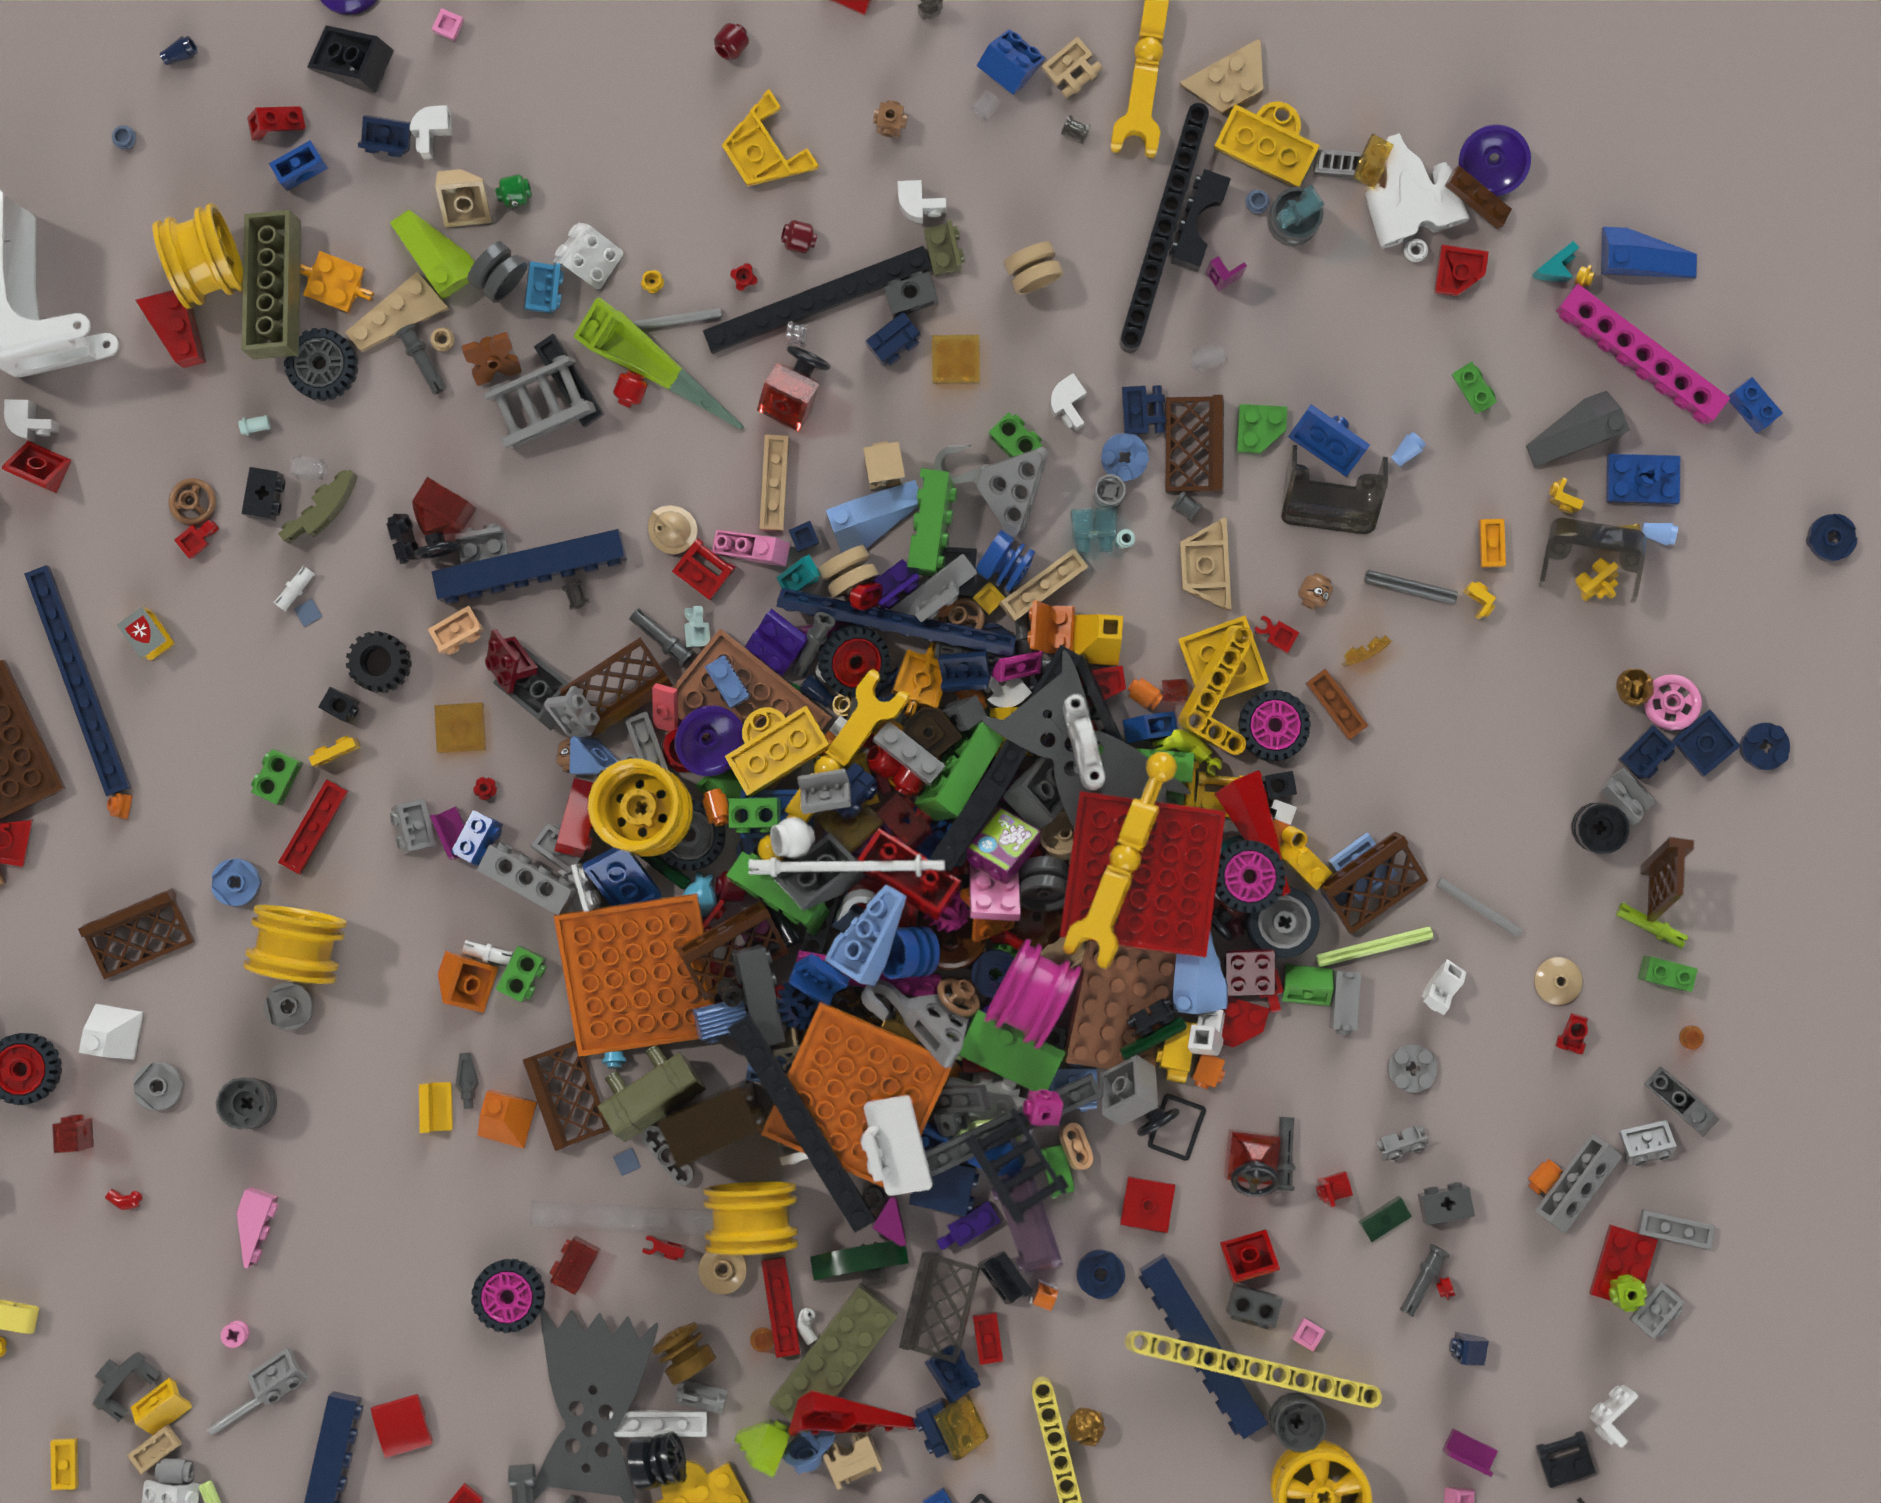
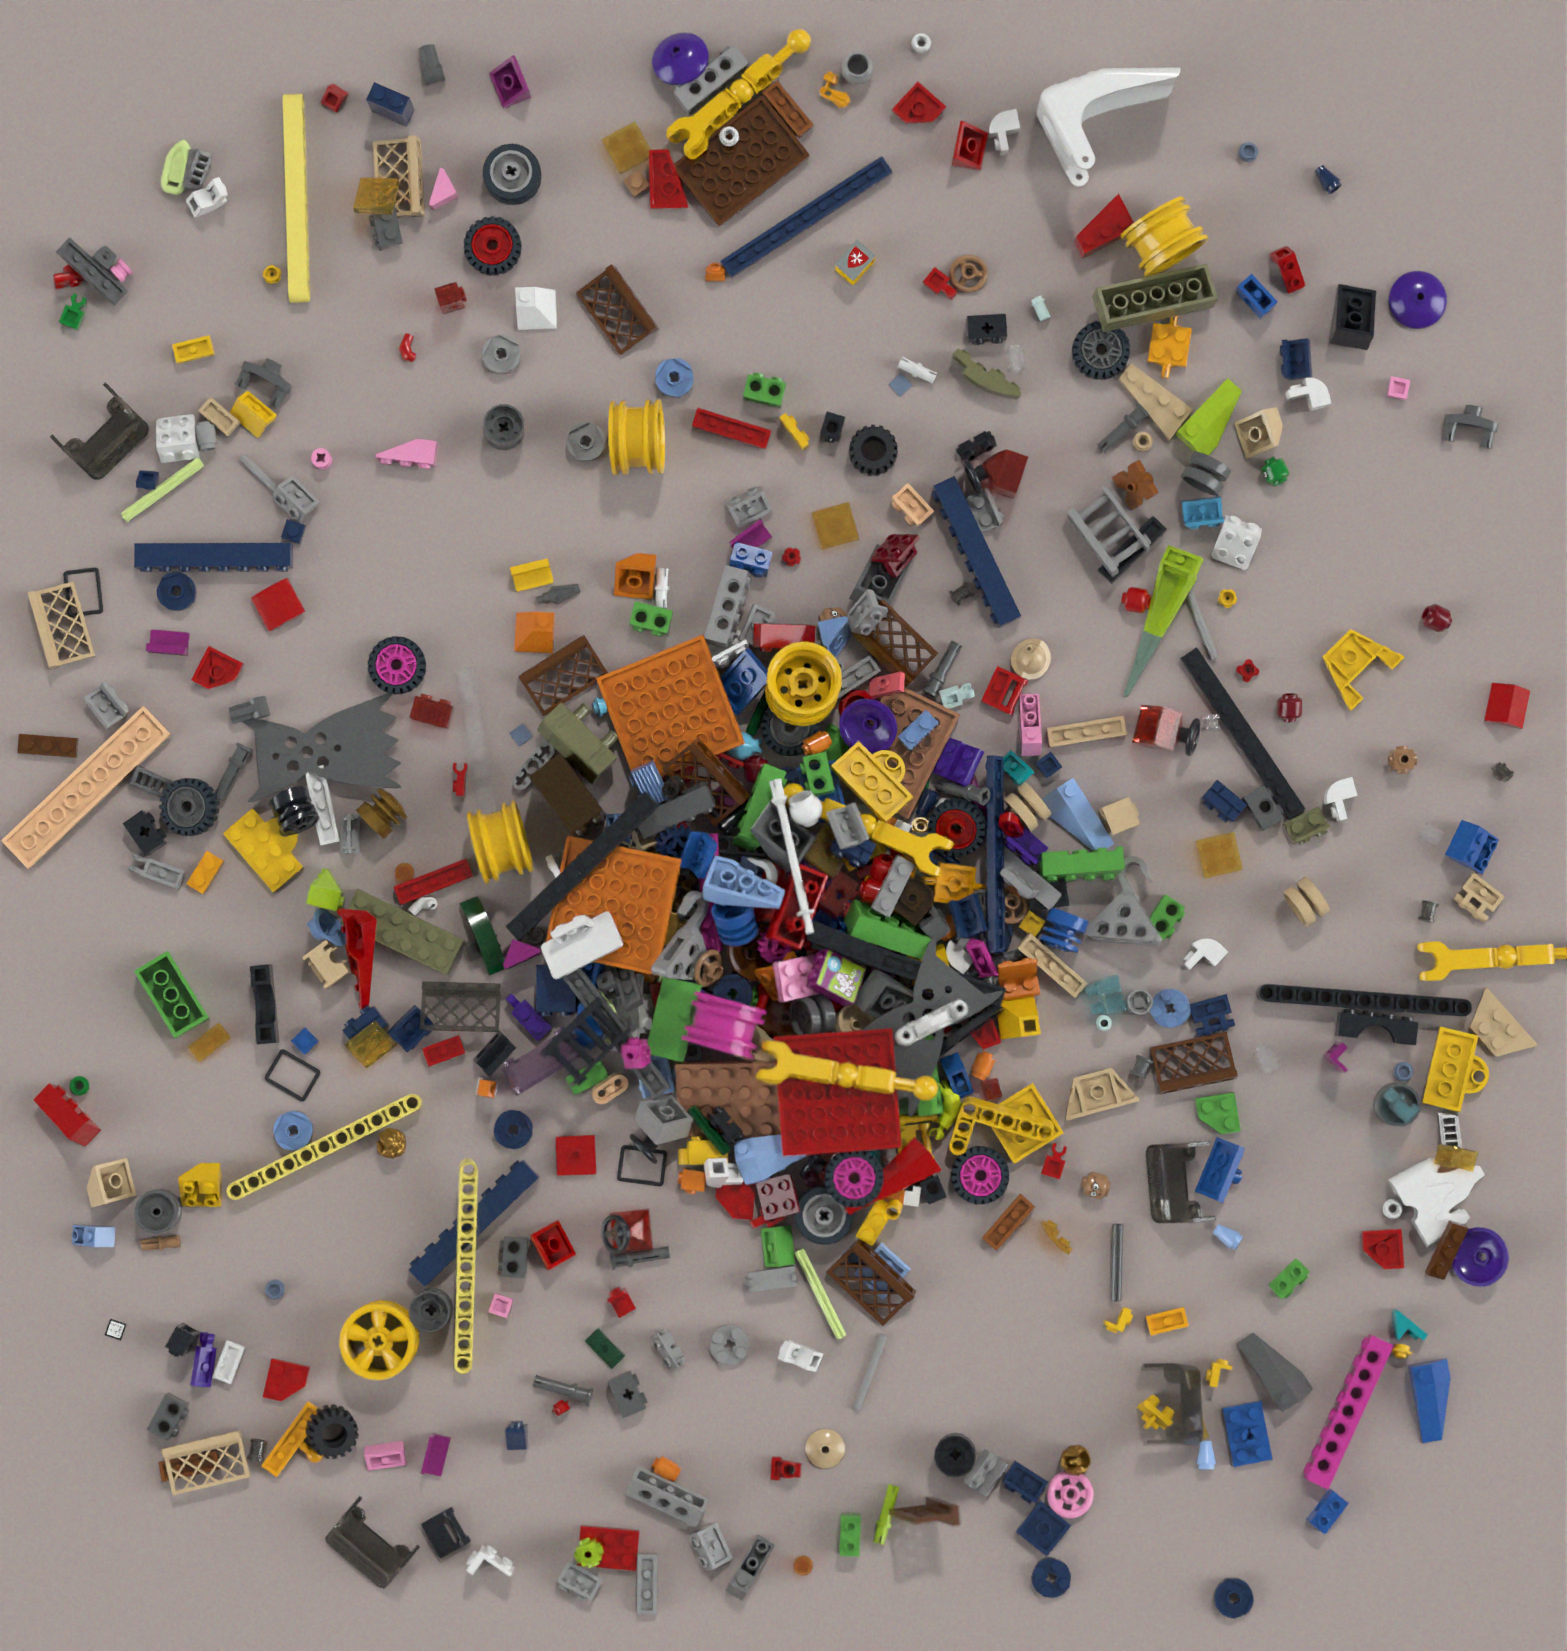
camera: 80 degrees right, 0 degrees up
(316, 1387) = (293, 531): none -> dark blue plate
(722, 1282) = (445, 822): tan dish -> none

